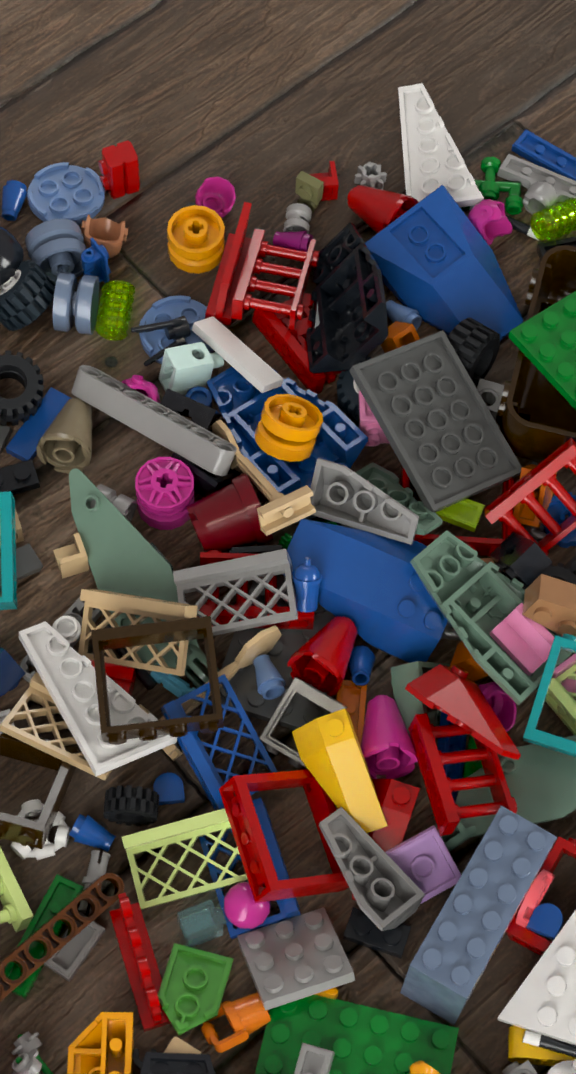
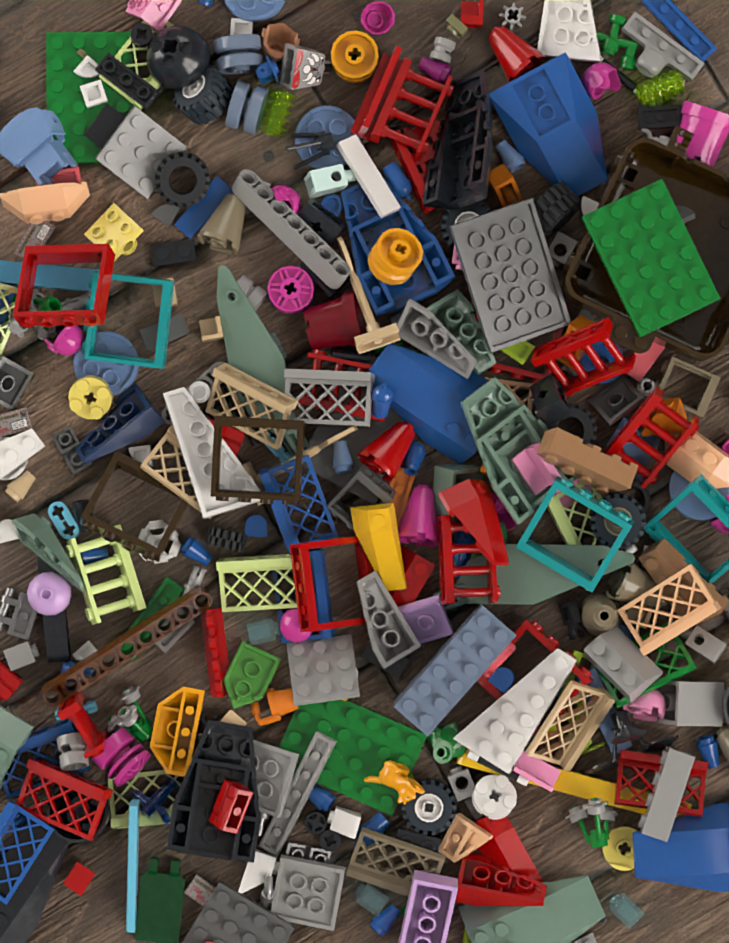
camera: 15 degrees right, 25 degrees up
(137, 252) = (303, 67): none -> light grey torso
(274, 357) = (398, 180): none -> blue piece
(487, 1028) = (443, 739): none -> green plate
(508, 356) = (588, 205): none -> white tile

